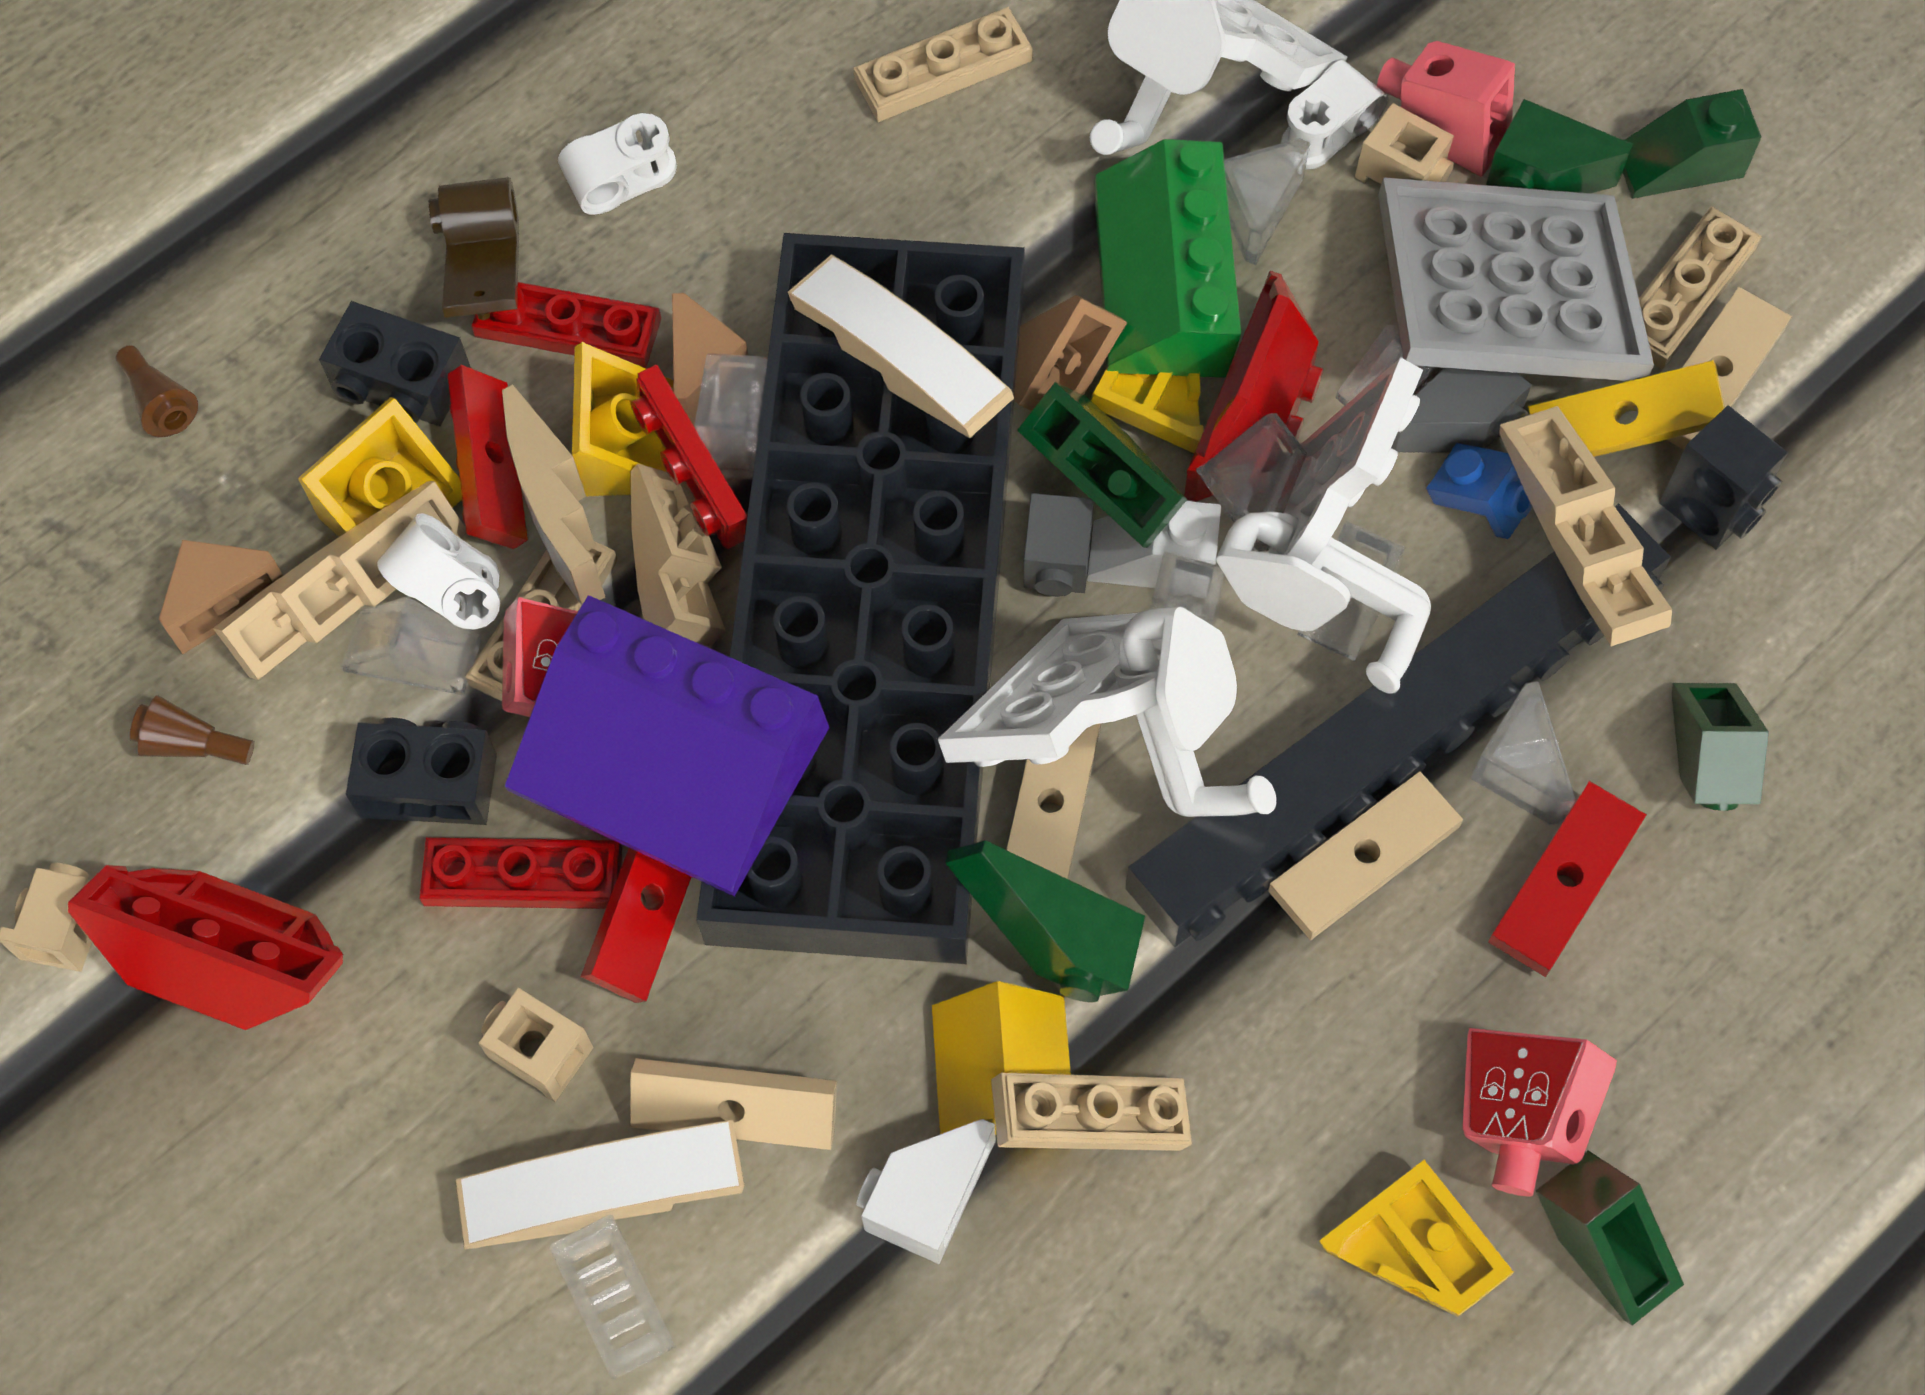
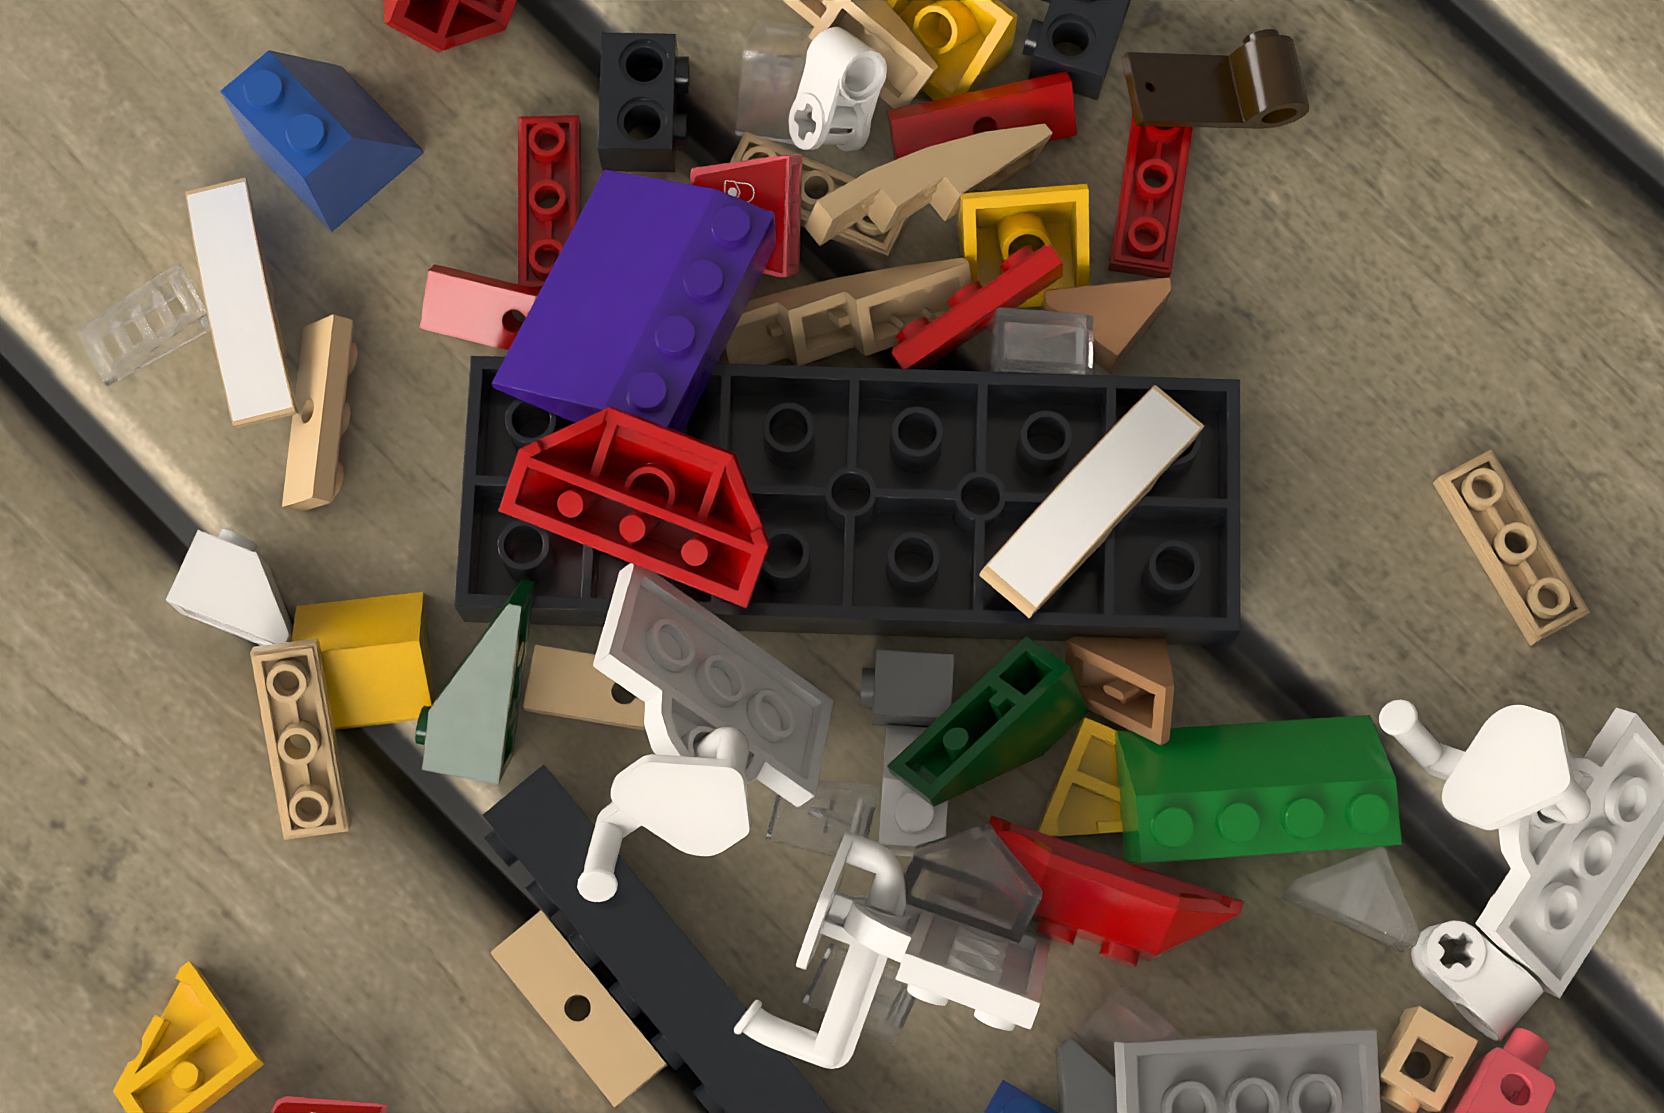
camera: 85 degrees right, 10 degrees up
(427, 1094) = (319, 132): none -> blue slope
(524, 1018) = (362, 213): tan brick -> none
(614, 166) = (1335, 205): white piece -> none
(883, 715) = (645, 500): none -> red wedge

